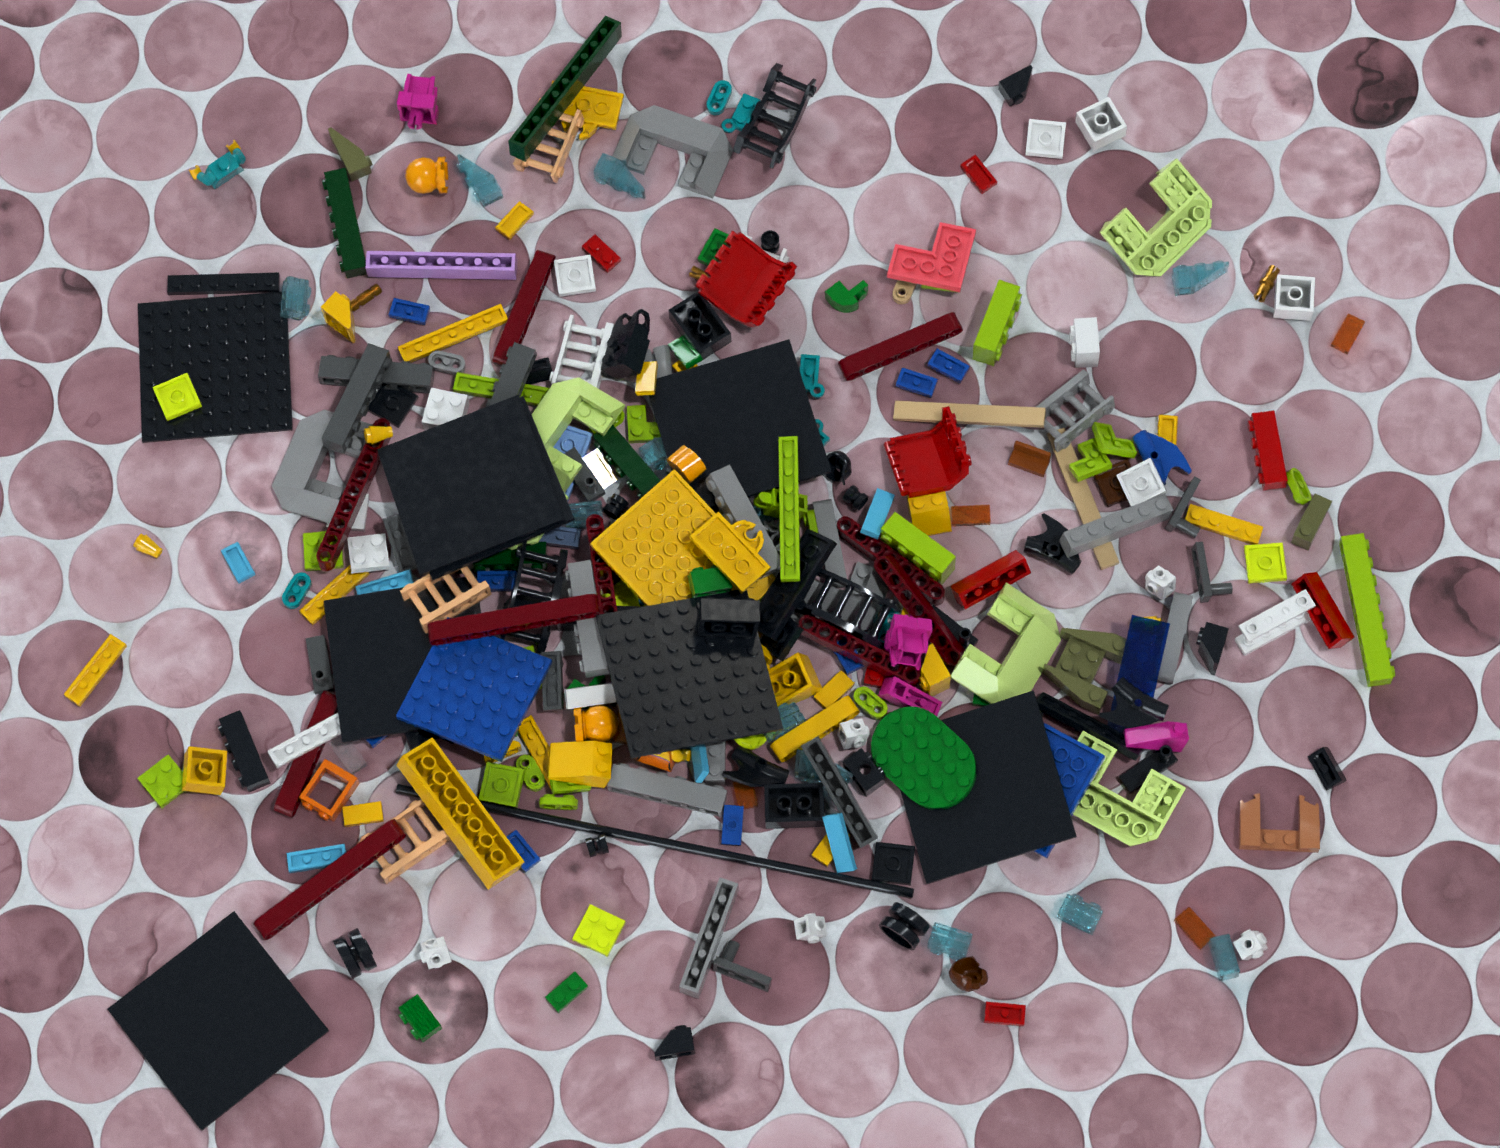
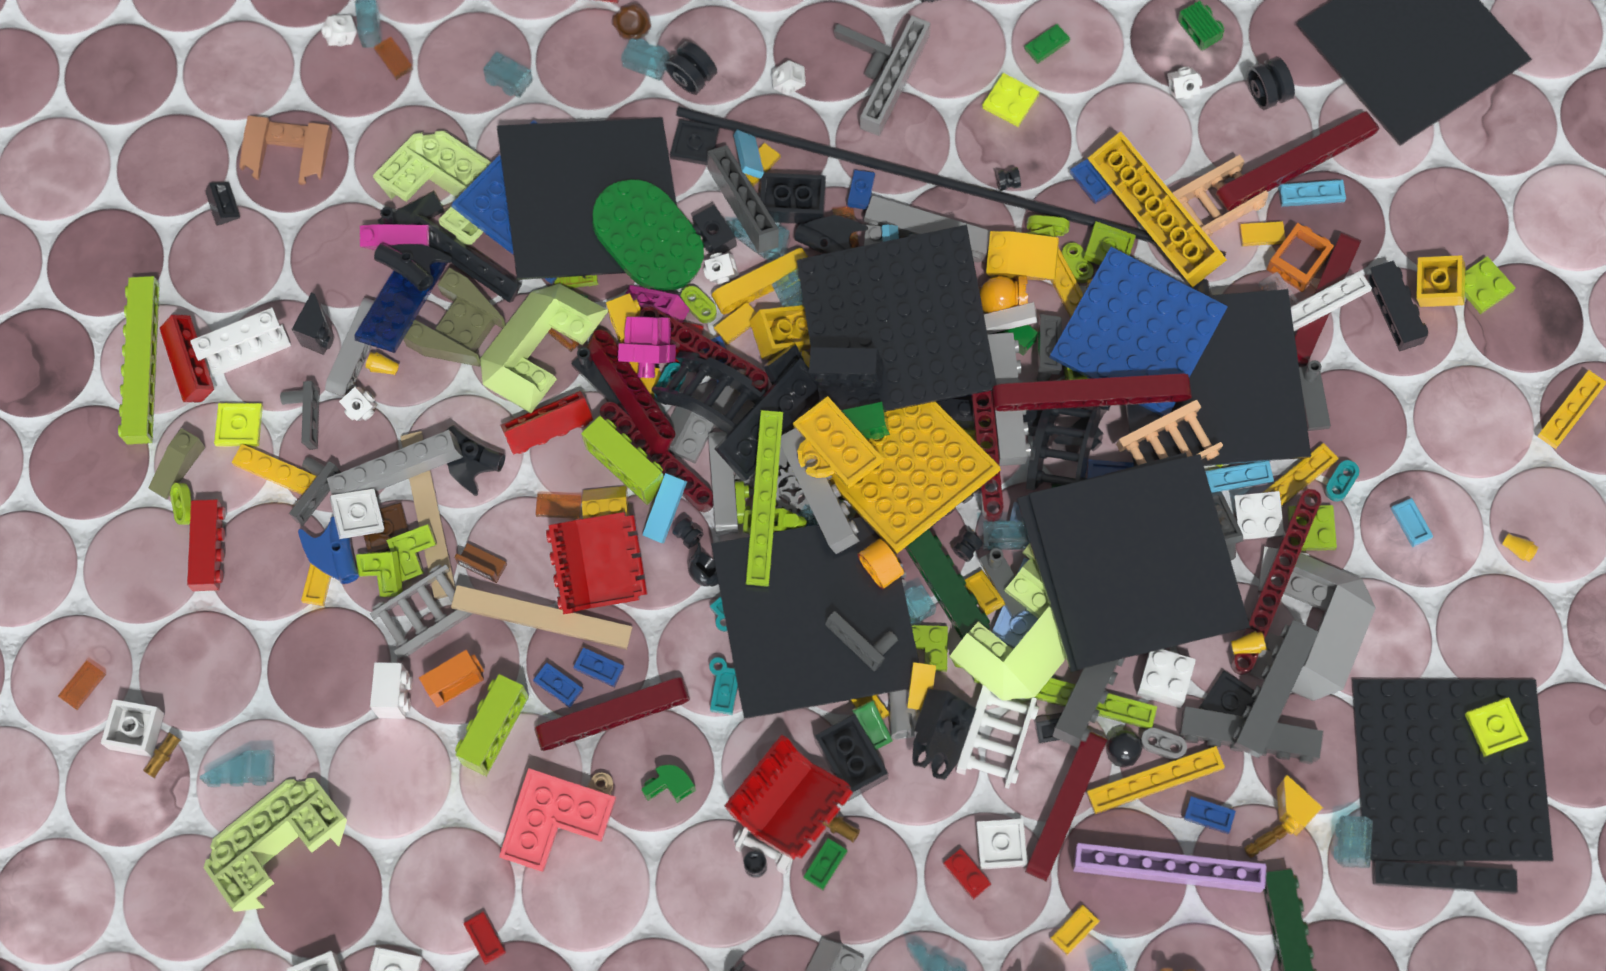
camera: 175 degrees left, 0 degrees up
(478, 357) = (1124, 748): none -> black hair
(688, 393) = (869, 654): none -> dark grey piece
(1036, 356) = (452, 678): none -> orange window

